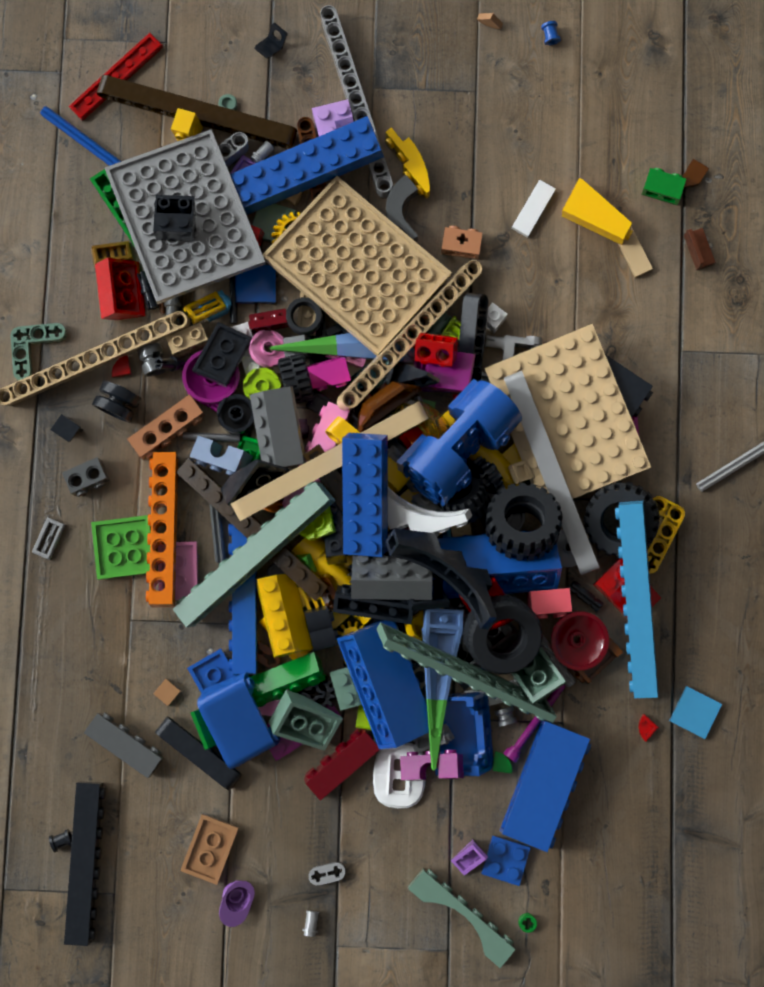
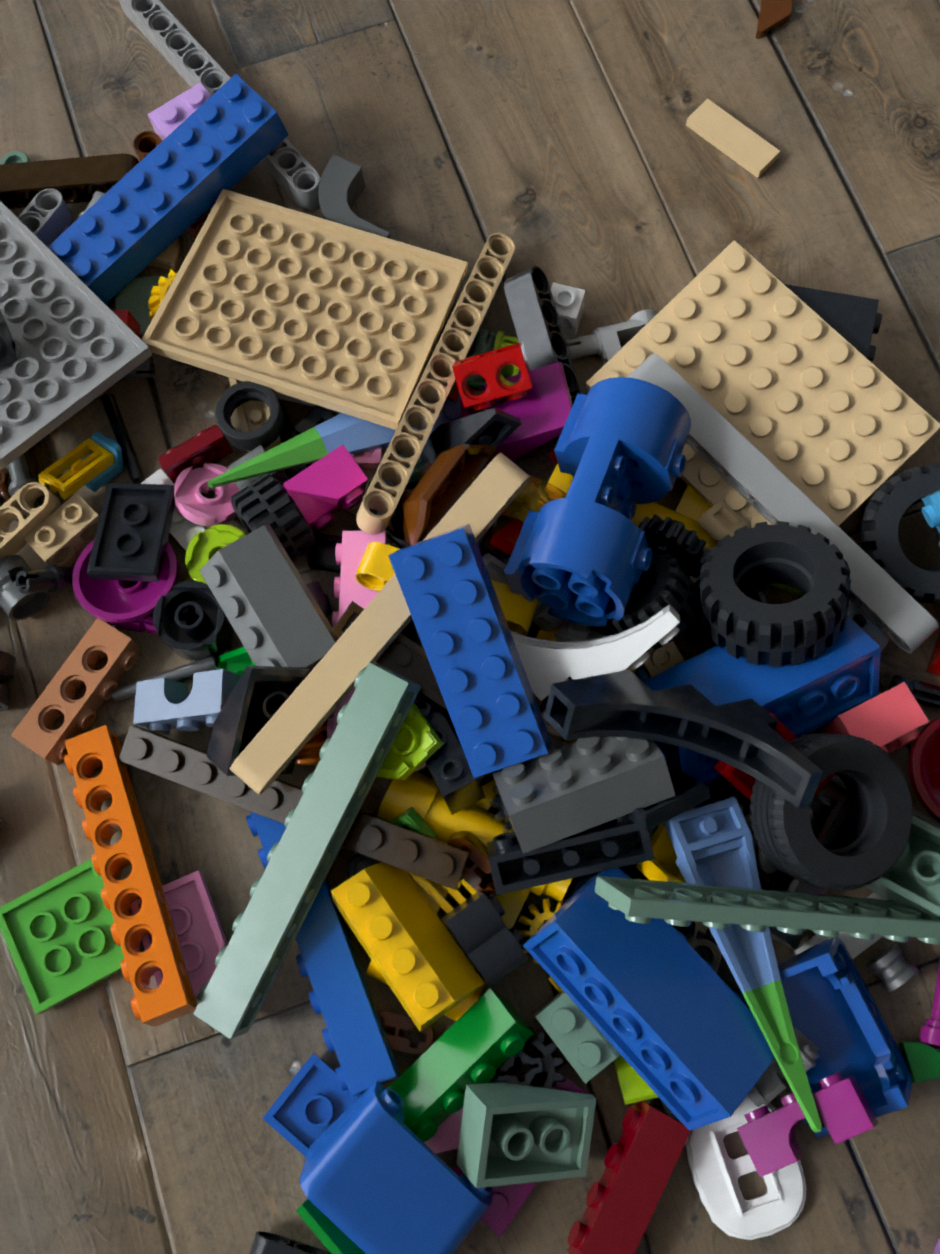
camera: 15 degrees left, 10 degrees down
(167, 692) = (241, 1182): medium nougat tile -> none
(217, 532) = (232, 840): dark grey axle -> none
(256, 286) = (152, 406): blue slope -> none
(271, 45) = (56, 62): black bracket -> none
(414, 165) = (335, 133): yellow slope -> none
(452, 246) = (463, 222): nougat brick -> none
(533, 208) = (554, 138): white tile -> none
(595, 213) = (658, 105): yellow slope -> none
(664, 186) = (740, 33): green brick -> none
(699, 248) = (835, 99): copper panel -> none

